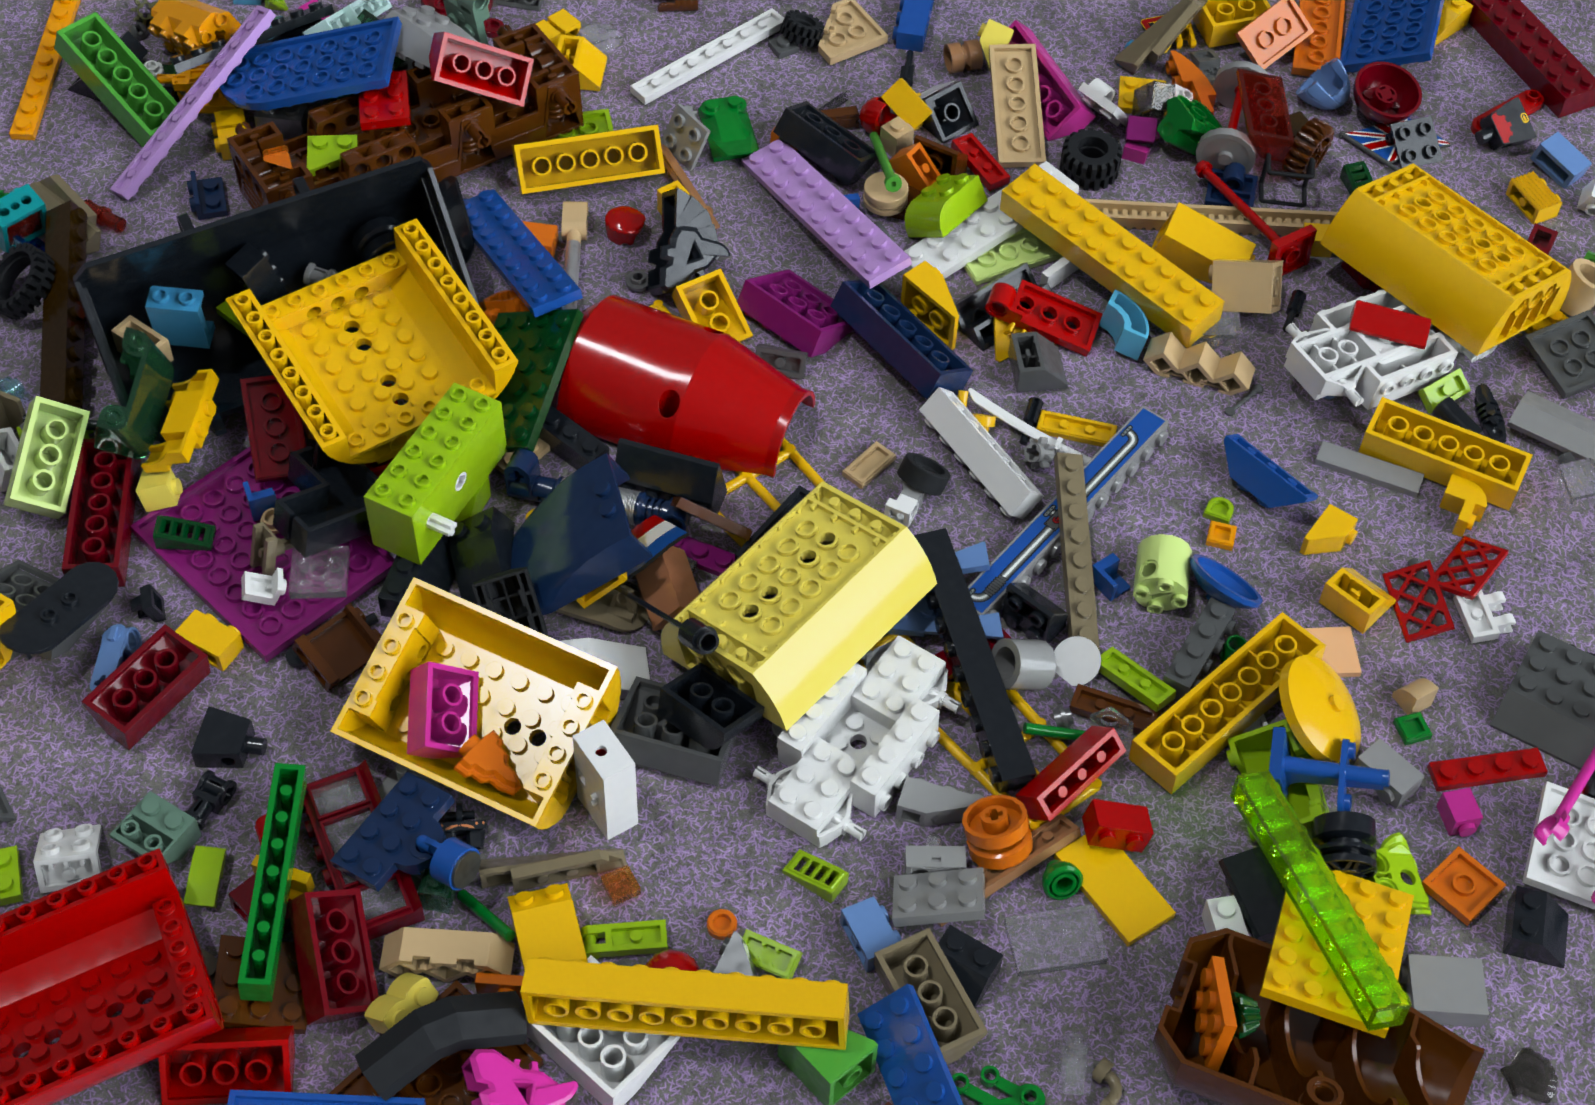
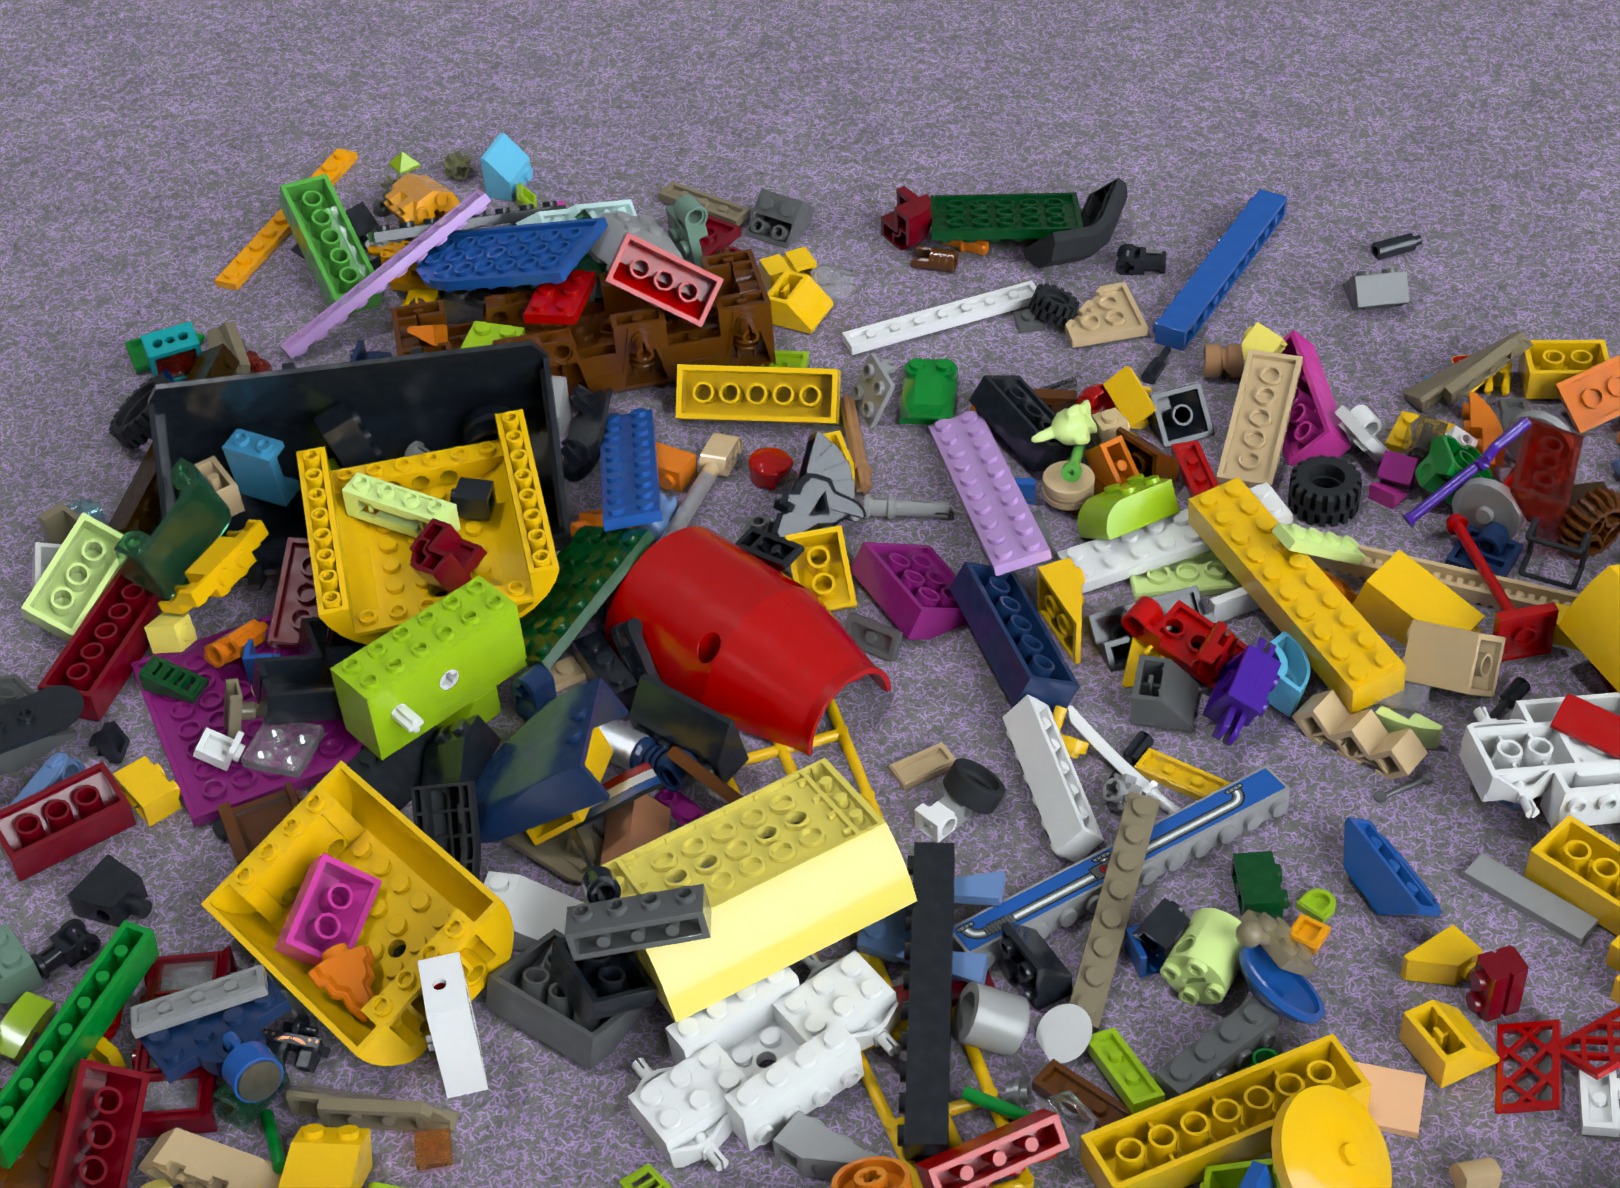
camera: 25 degrees right, 10 degrees down
(226, 489) = (232, 644): none -> orange rock
(338, 332) = (398, 506): none -> yellowish green brick
(373, 815) = (199, 1001): none -> light grey tile
(398, 309) = (474, 498): none -> black brick
(403, 370) = (444, 556): none -> dark red brick
(599, 421) = (633, 649): none -> black plate
(673, 301) = (770, 548): none -> black slope
(744, 241) = (893, 507): none -> light grey pin
(746, 658) = (638, 922): none -> dark grey brick
(872, 142) = (1070, 426): none -> yellowish green animal
(1068, 317) = (1215, 651): none -> red arm
(1102, 346) = (1242, 690): none -> dark purple brick
(1117, 209) = (1318, 543): none -> yellowish green plate
(1123, 558) = (1161, 926): none -> black brick
(1172, 506) = (1258, 883): none -> dark green brick
(1203, 548) = (1276, 940): none -> dark tan plate
(1215, 116) = (1477, 465): none -> dark purple piece
(1223, 348) = (1425, 729): none -> yellowish green slope
(1379, 543) = (1497, 983): none -> dark red brick

